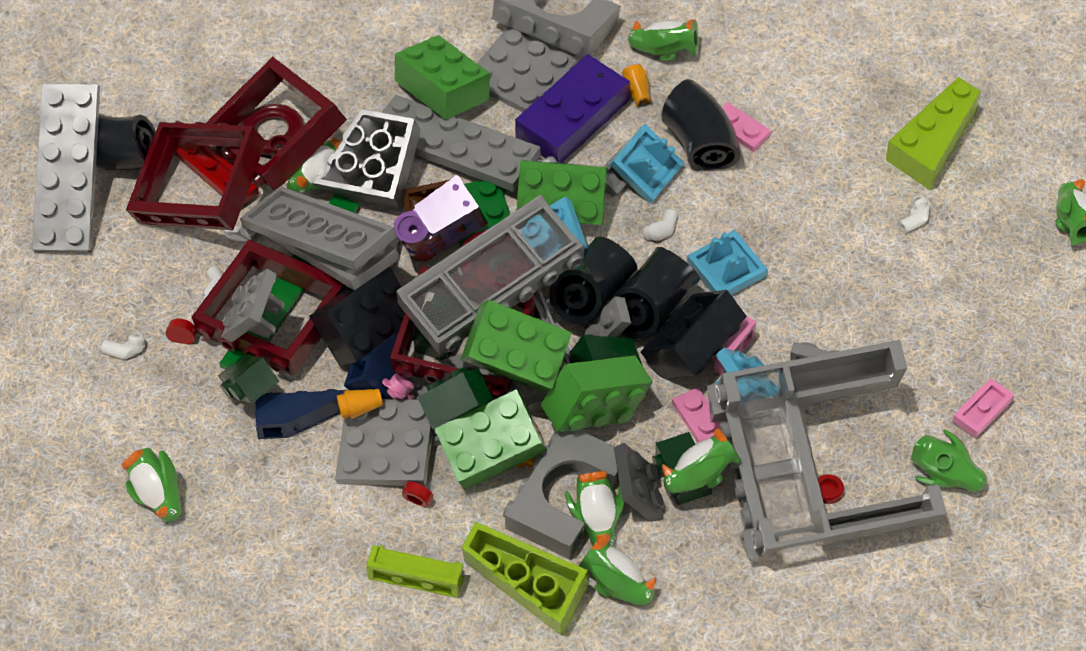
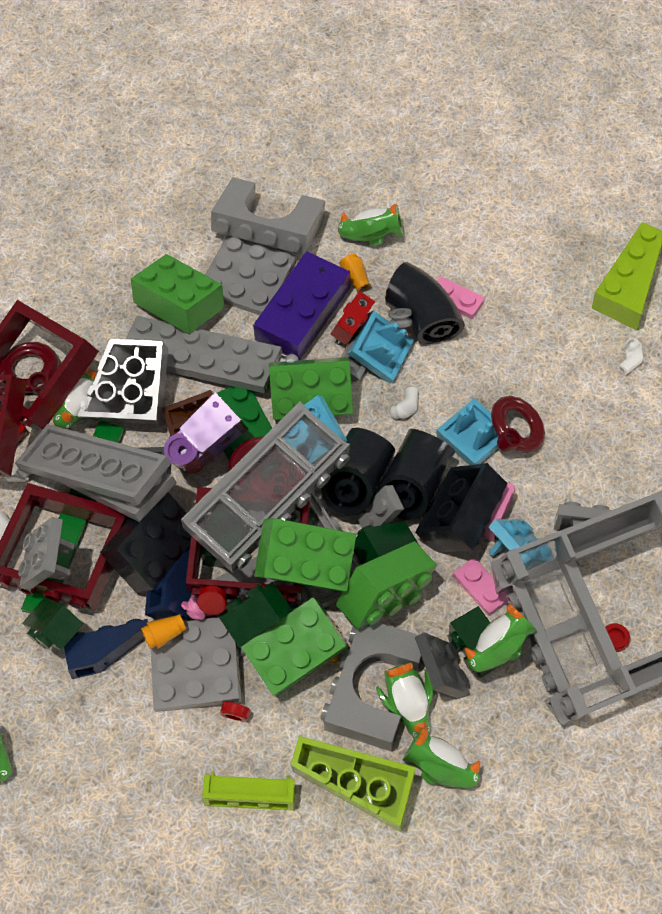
camera: 10 degrees left, 5 degrees up
(414, 379) = (212, 600): none -> red tile
(621, 128) = (354, 315): none -> red piece
(672, 135) = (401, 317): none -> light grey bush
(762, 275) = (509, 438): none -> dark red piece

